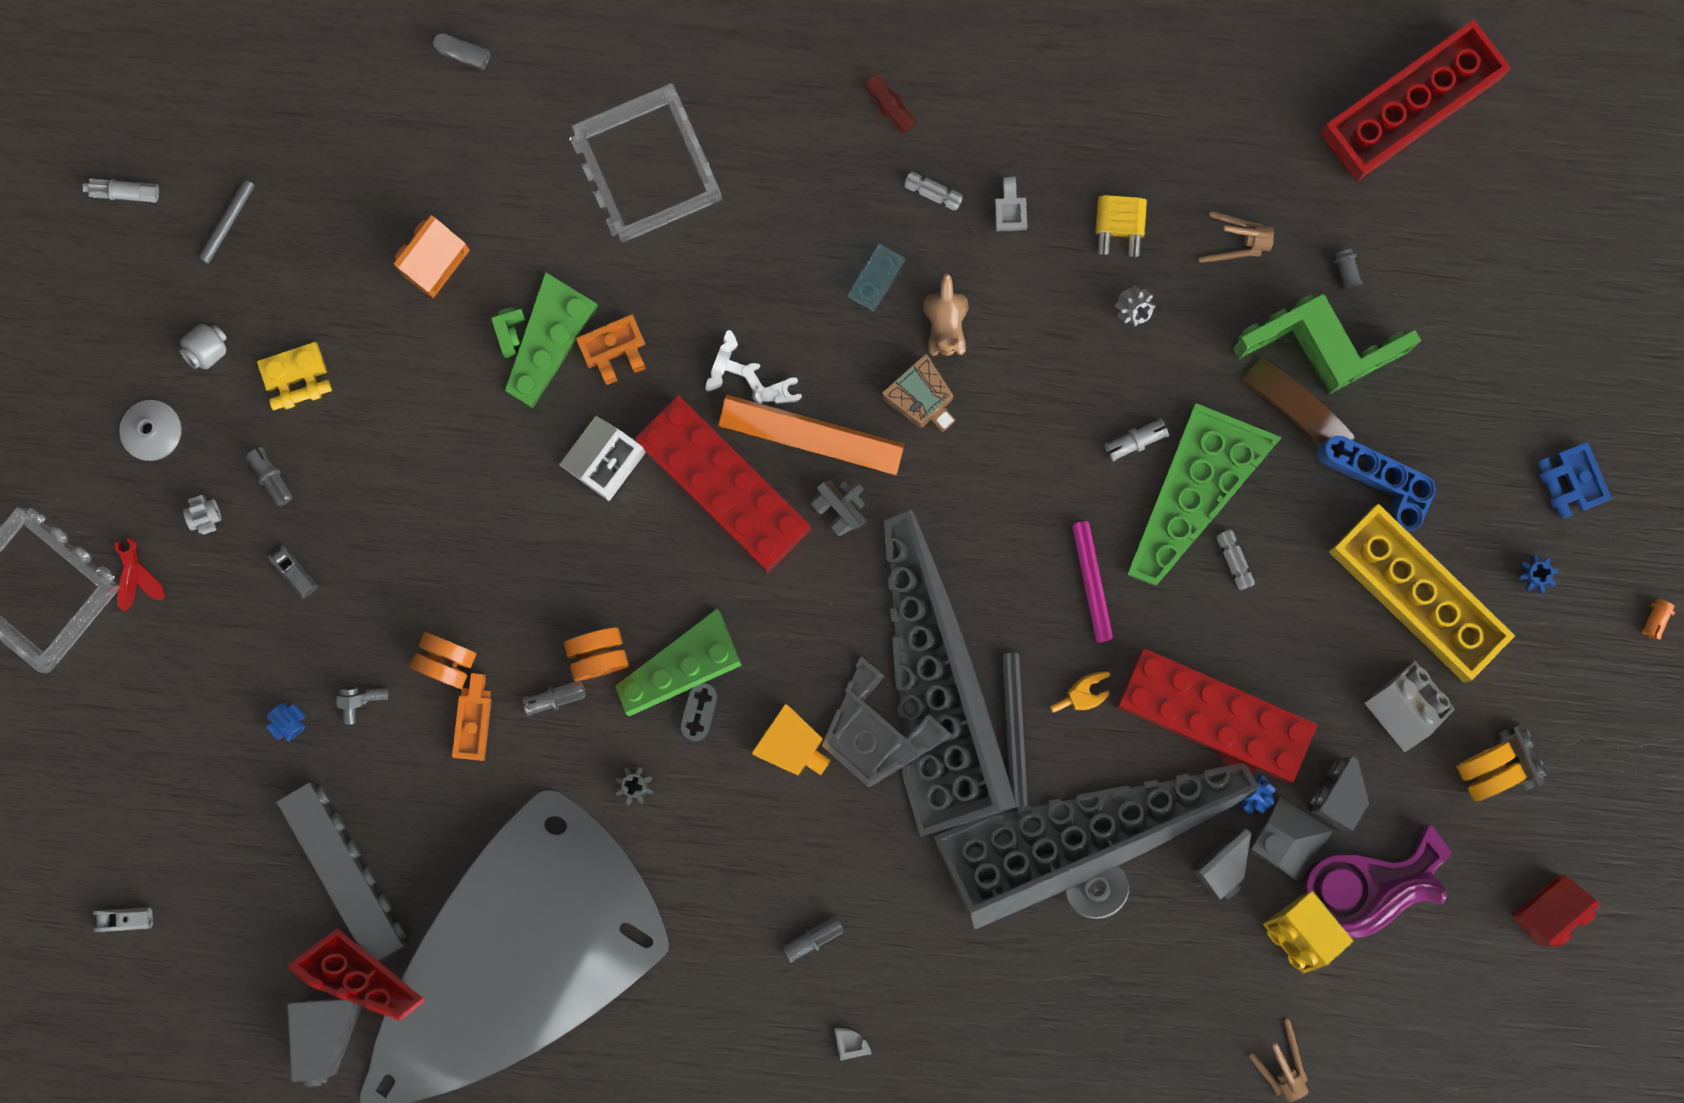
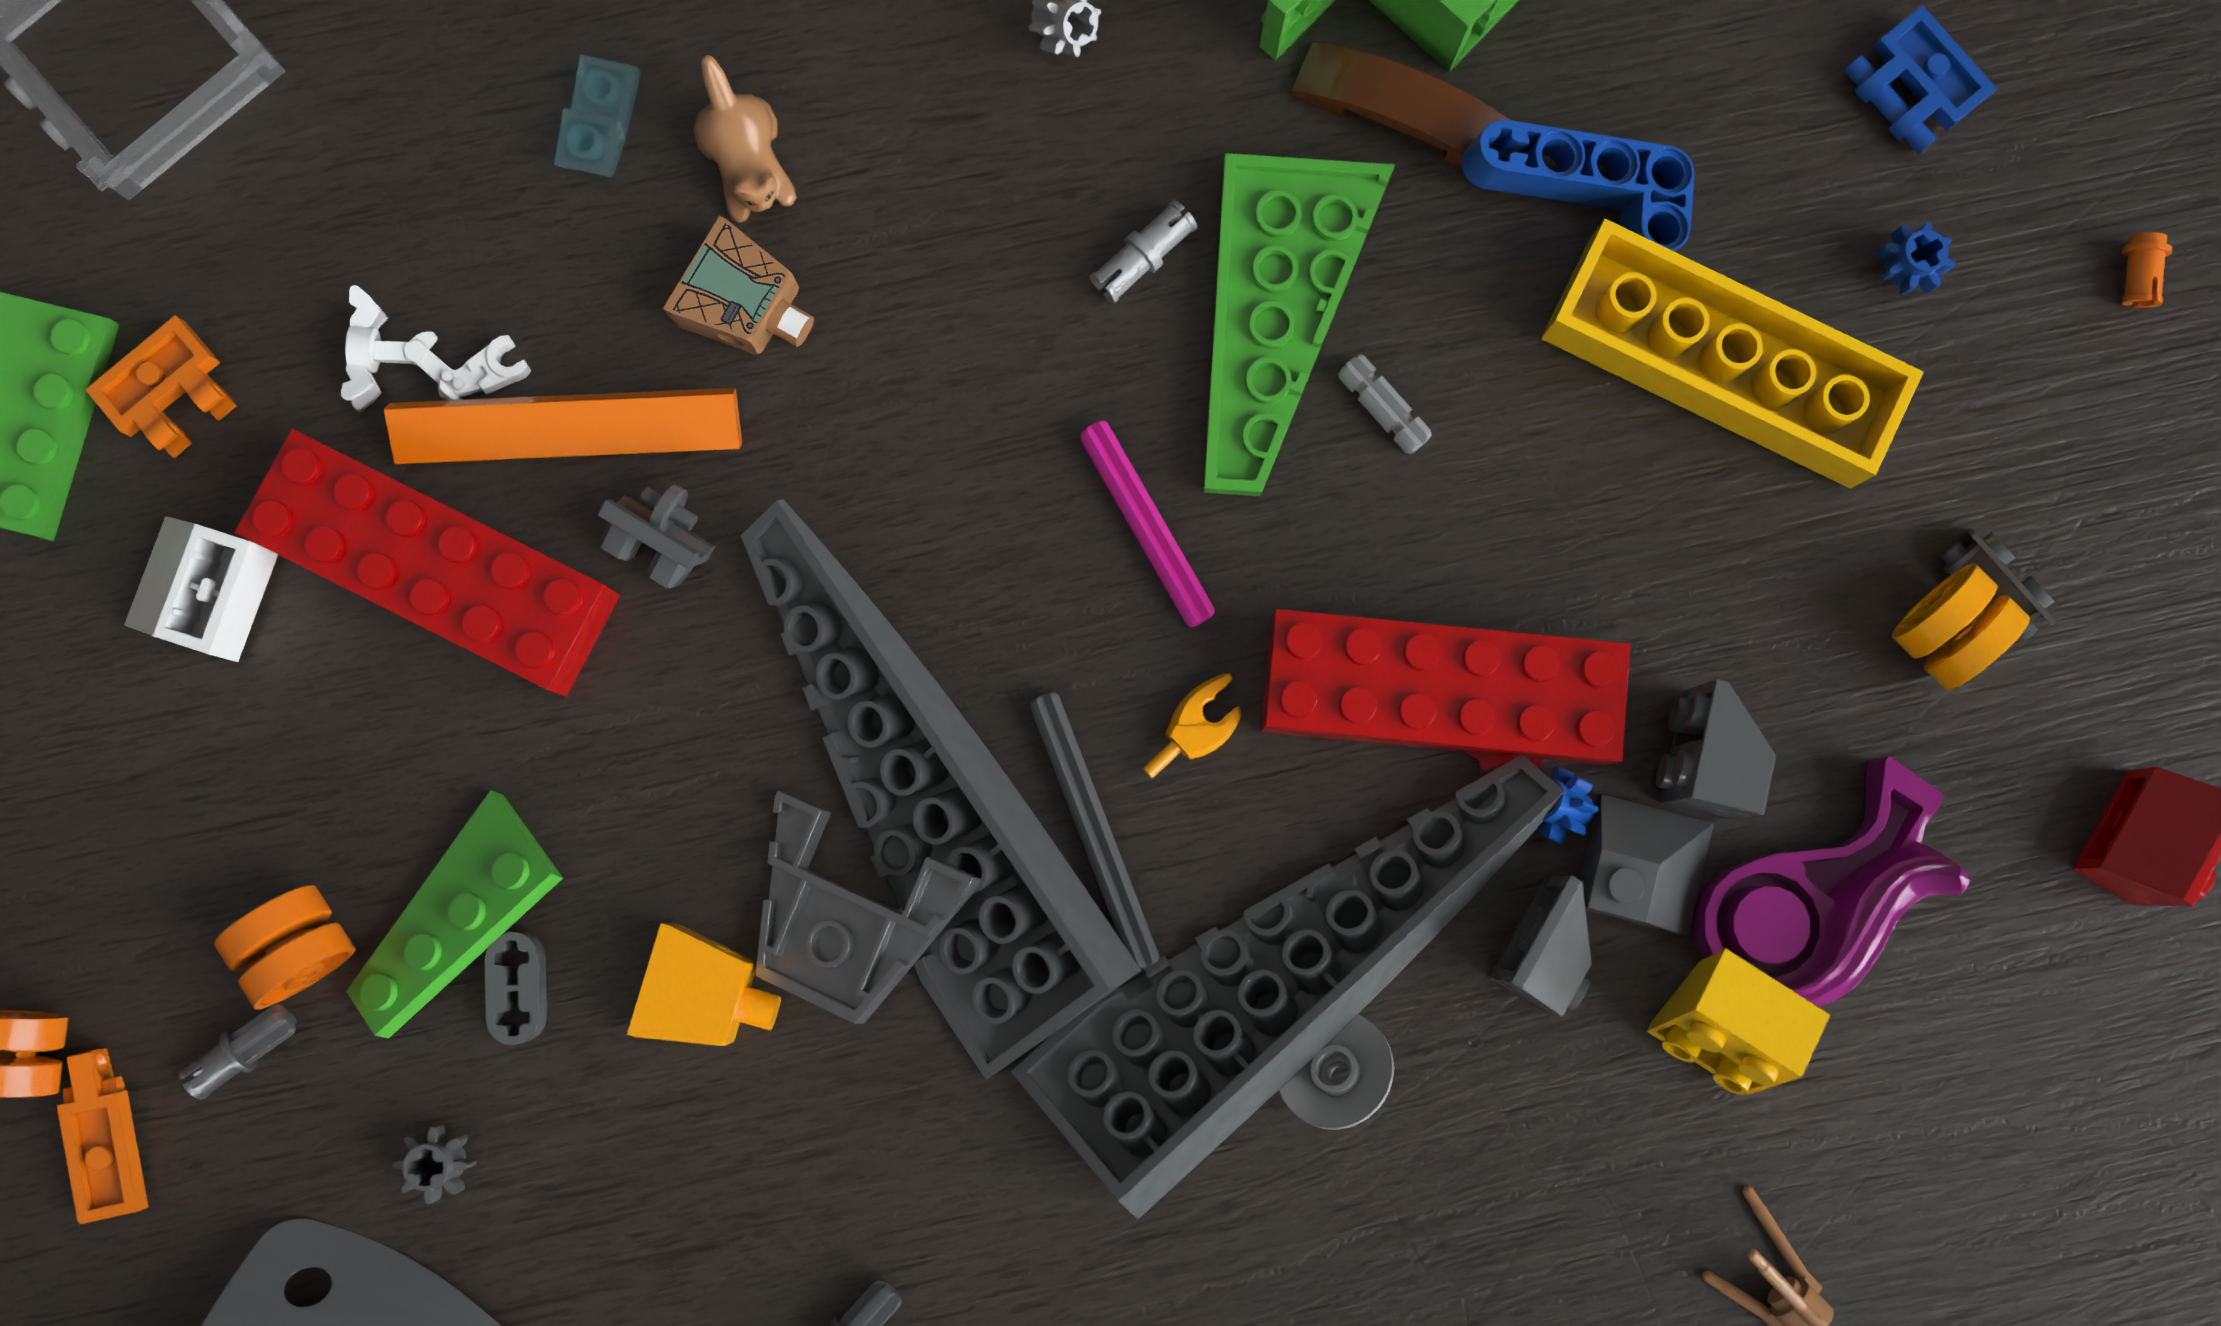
camera: 25 degrees left, 0 degrees up
(1410, 706) = (1776, 560): light grey slope -> none

